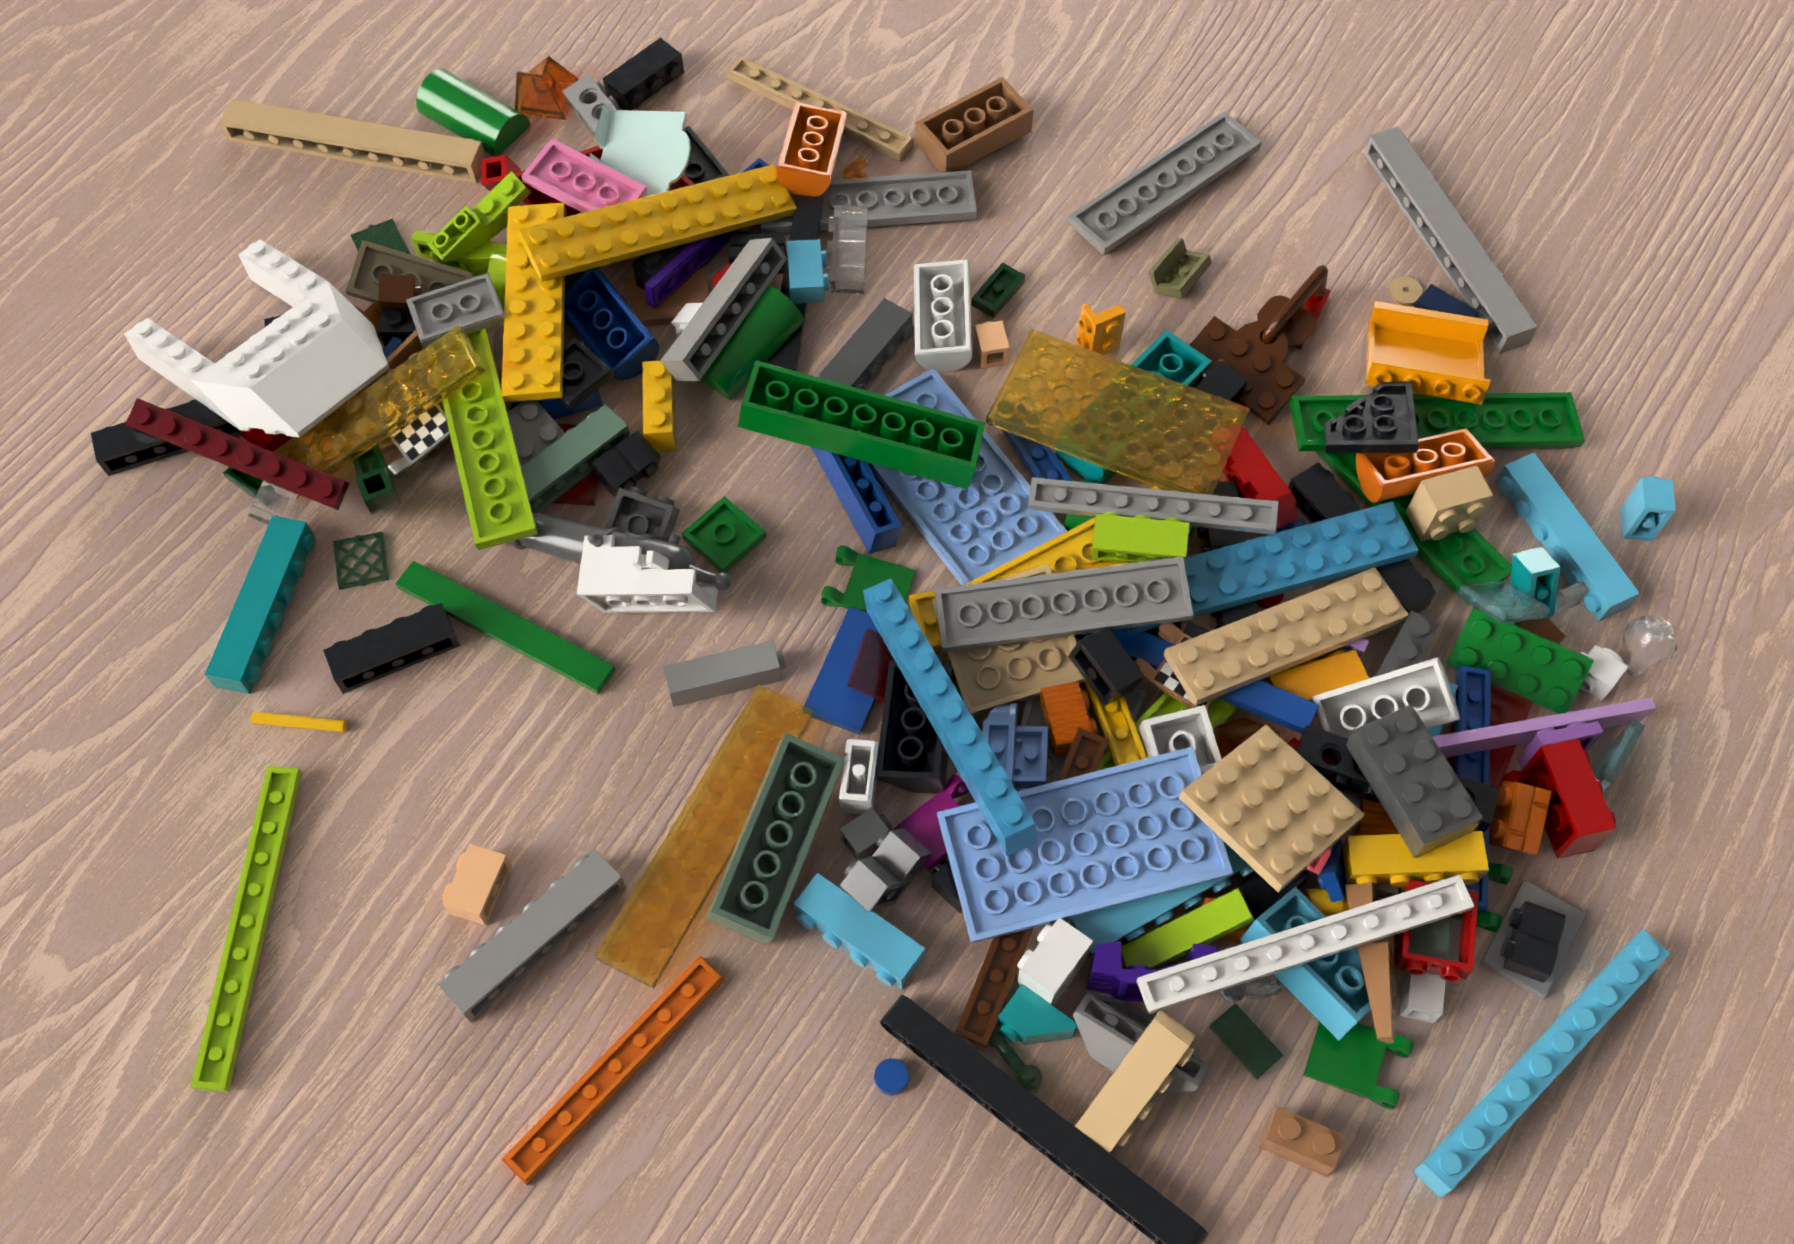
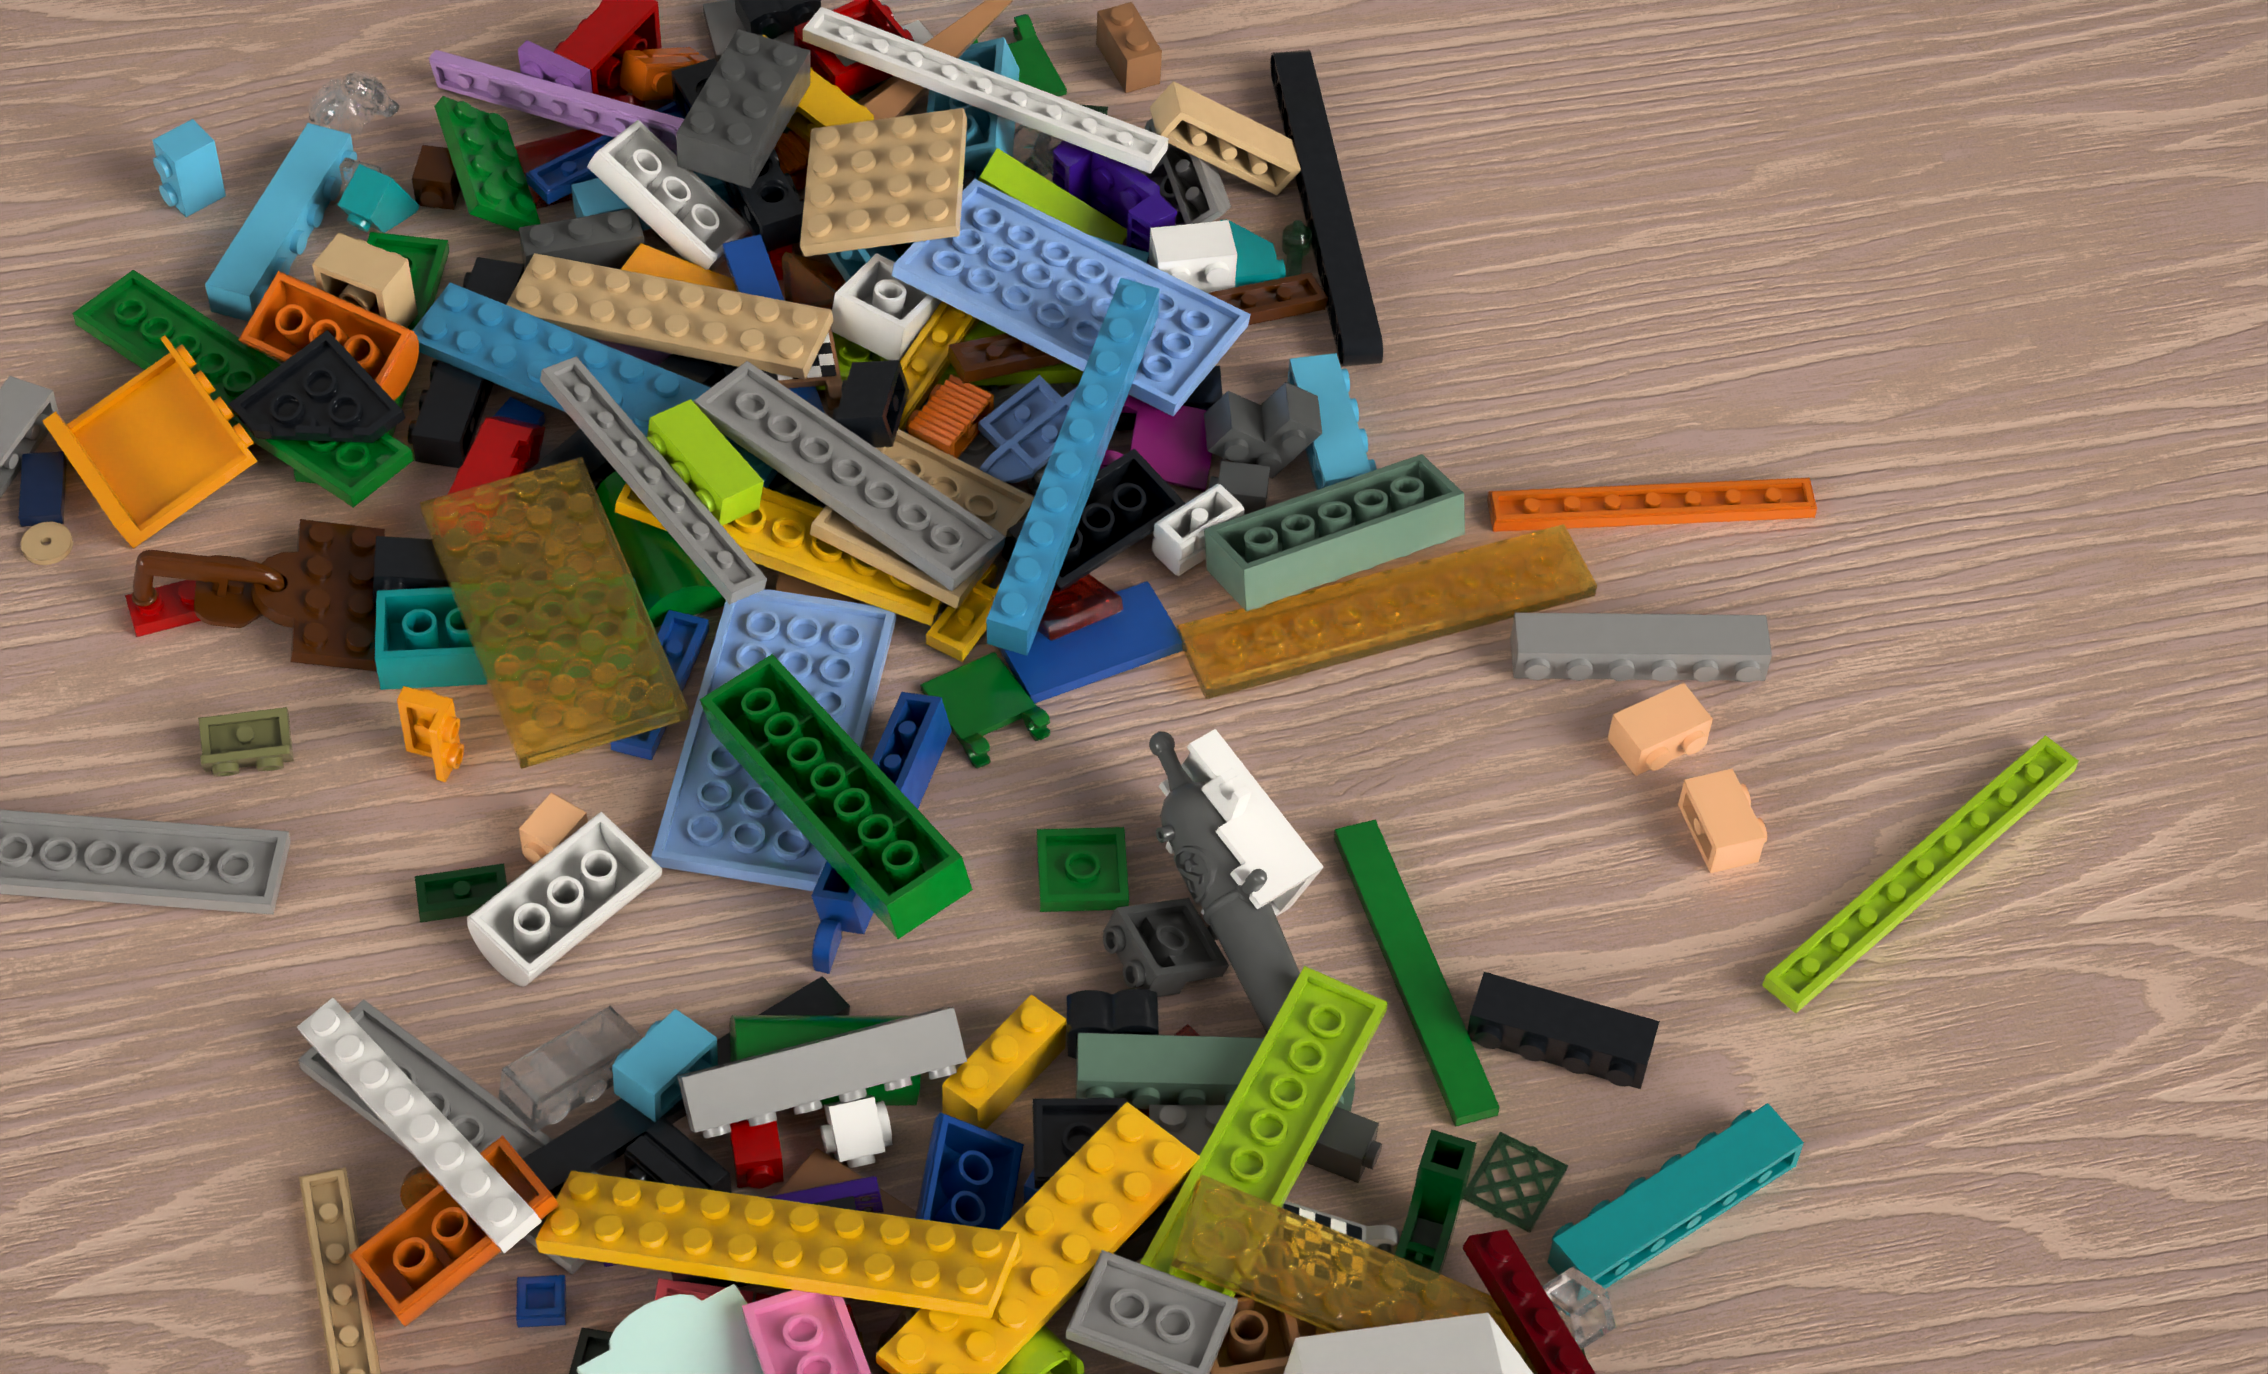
camera: 140 degrees left, 10 degrees down
(302, 722) = (1727, 1043): yellow bar -> none
(394, 852) = (1722, 820): none -> light nougat brick
(451, 502) = (1346, 1145): none -> dark grey brick
(724, 673) = (1259, 740): light grey brick -> none
(870, 346) = (698, 939): dark grey brick -> none
(876, 162) = (419, 1125): none -> white plate
(891, 1077) = (1411, 324): blue tile -> none
(974, 126) = (221, 1105): medium nougat brick -> none
(1503, 602) = (439, 197): clear light blue tile -> none
(1603, 673) = (420, 117): white brick -> none
(1618, 754) = (510, 32): clear light blue tile -> none

